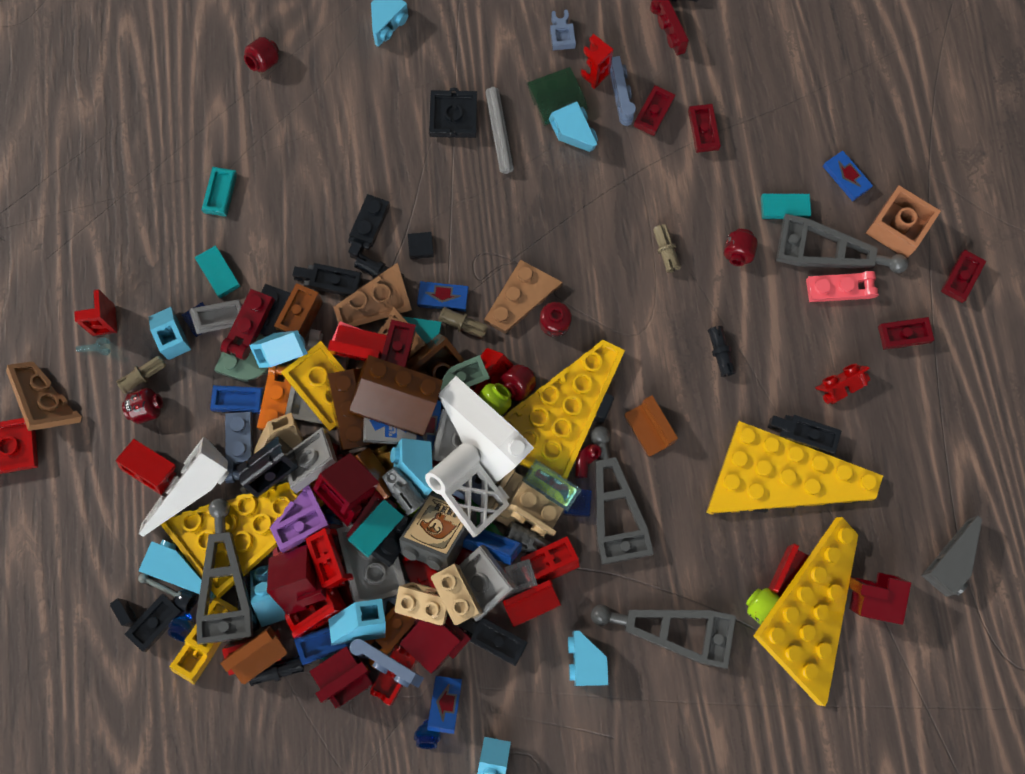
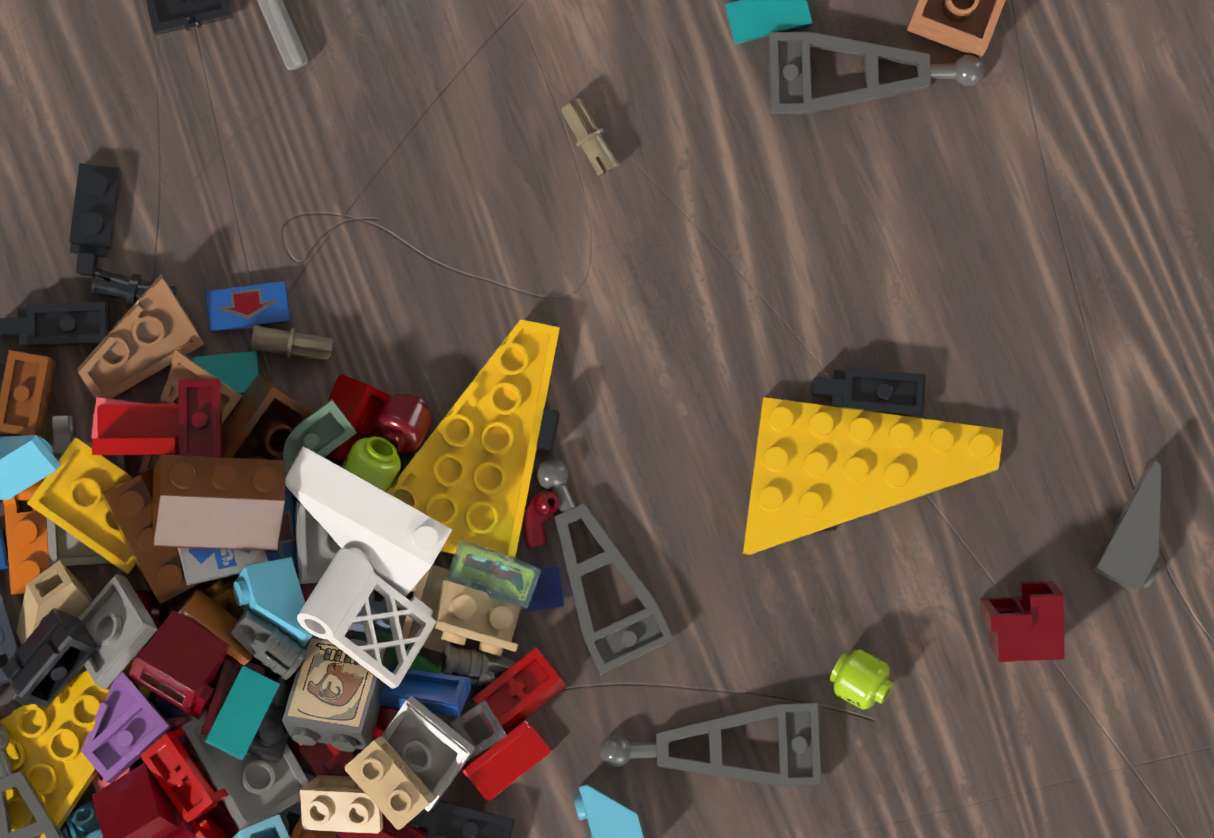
camera: 15 degrees left, 10 degrees up
(420, 245) = (189, 229): black tile -> none
(520, 295) = (373, 272): medium nougat wing -> none
(555, 319) = (437, 304): dark red head -> none
(651, 427) = (627, 441): dark orange panel -> none
(721, 351) = (714, 289): black pin -> none
(740, 247) = (708, 107): dark red head -> none
(787, 569) = (889, 618): red panel -> none
(808, 616) = (927, 678): yellow wing -> none
(834, 386) = (901, 304): red hinge -> none
(841, 287) = (884, 133): coral plate -> none
(906, 333) = (999, 187): dark red plate -> none
(963, 276) = (1075, 68): dark red plate -> none

